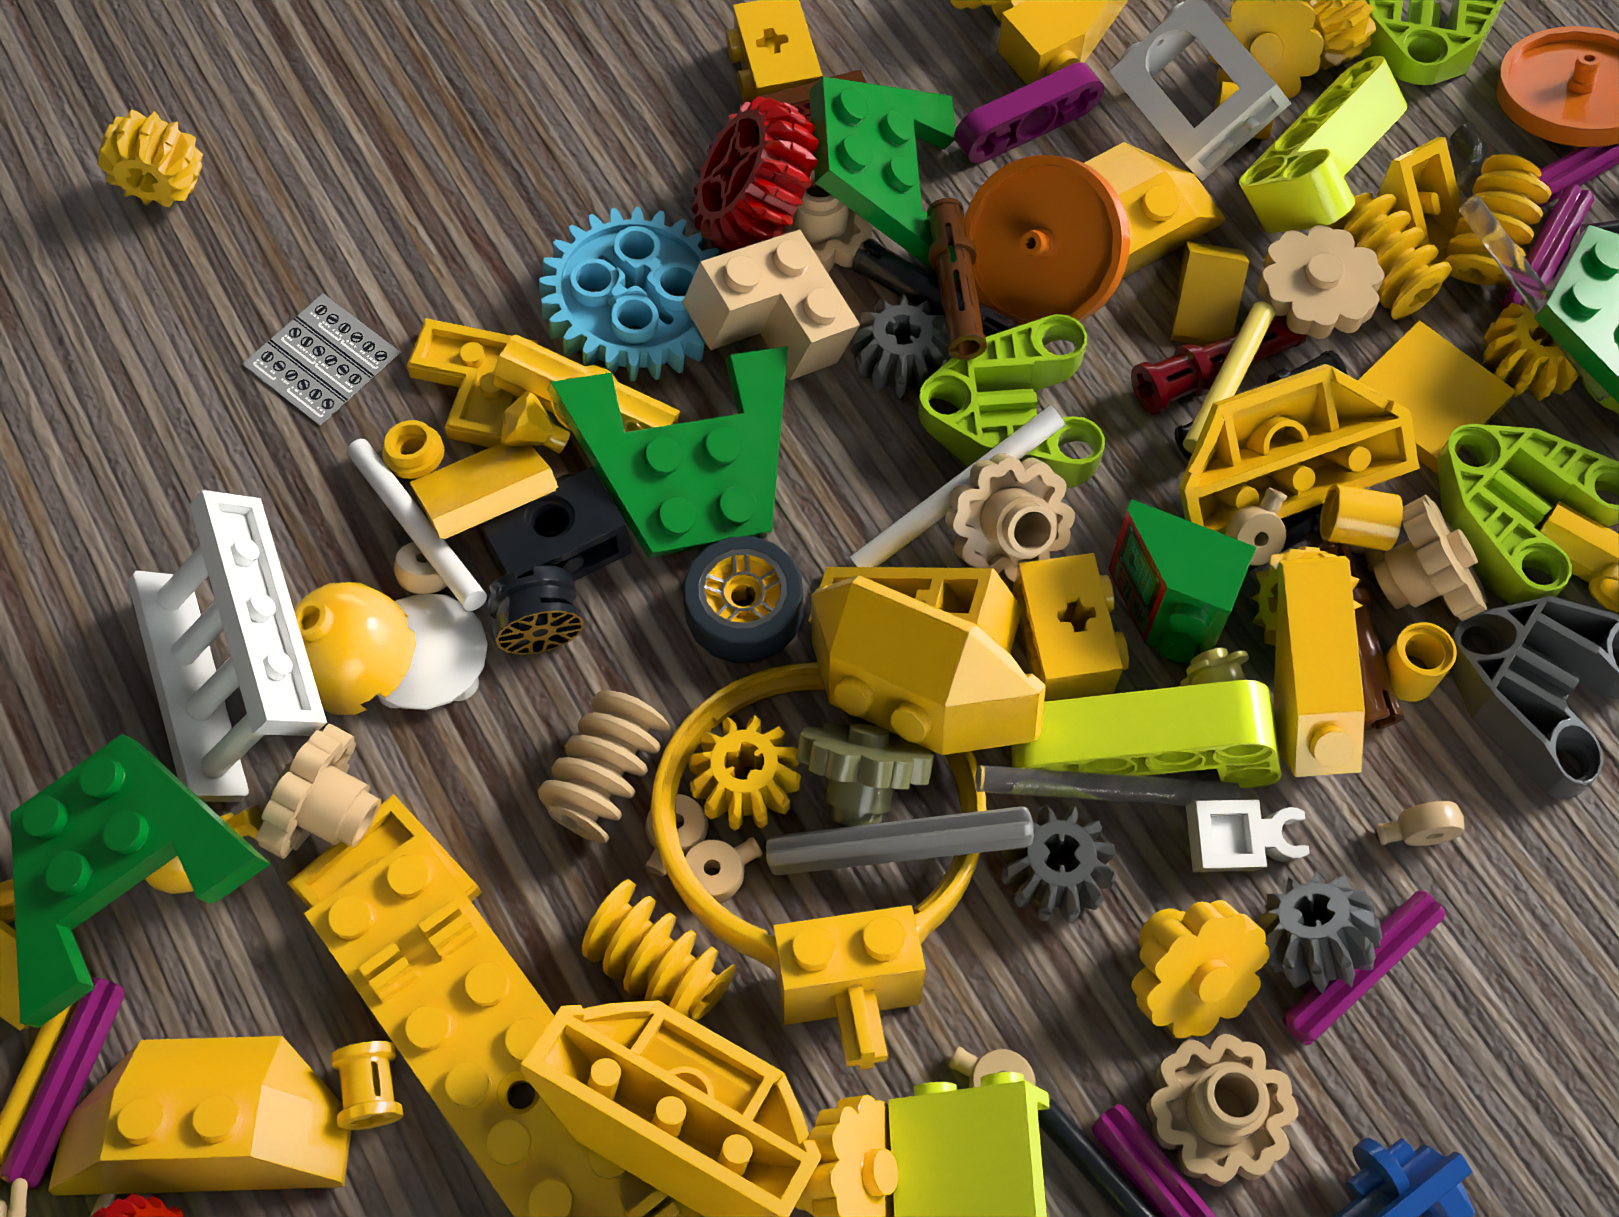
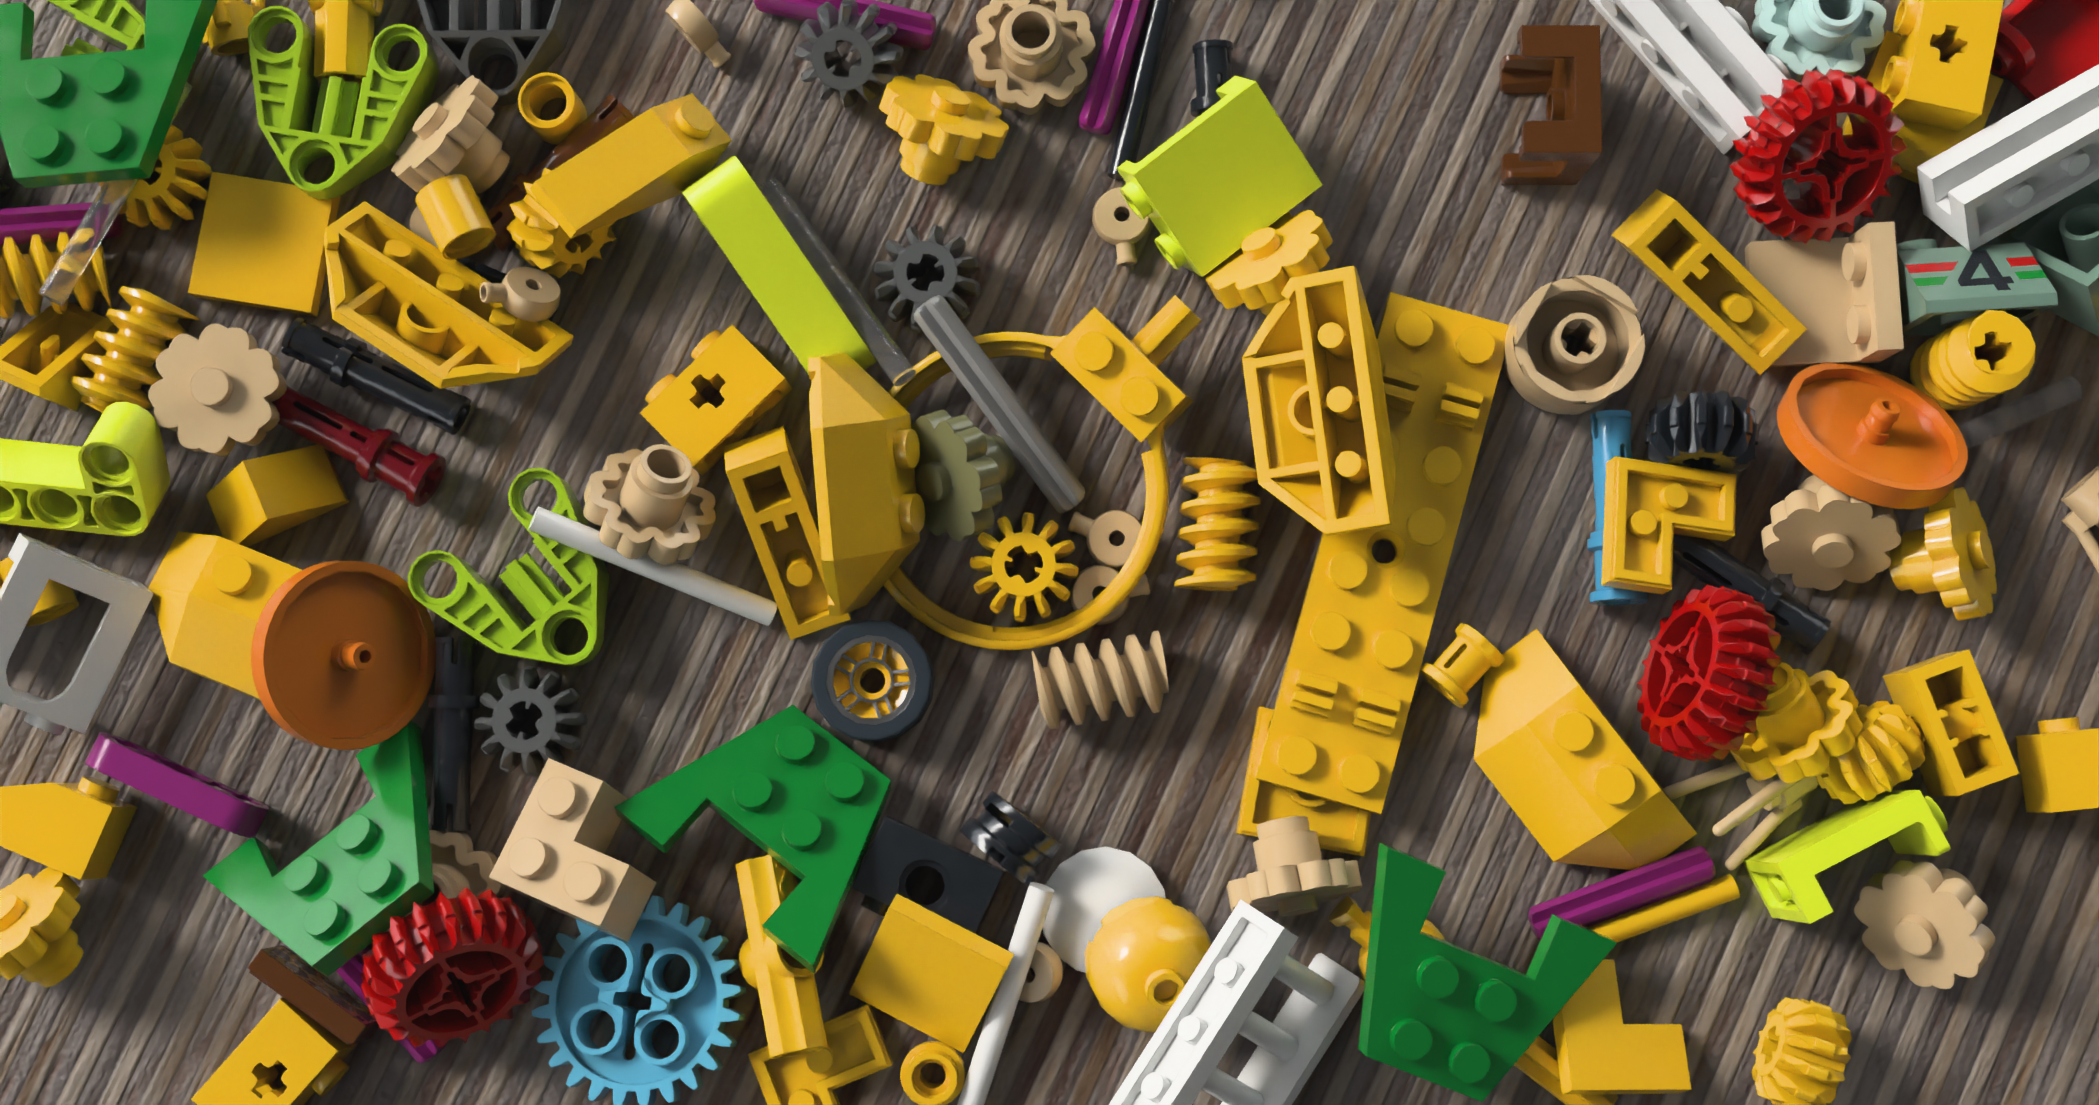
camera: 120 degrees left, 20 degrees up
(529, 424) = (847, 978): yellow rock -> none
(962, 327) = (383, 757): reddish brown pin -> none
(1177, 579) = (622, 324): green slope -> none
(1215, 666) = (675, 258): light yellow plate -> none
(1234, 366) = (375, 410): light yellow bar -> none
(1235, 838) = (805, 163): white plate -> none

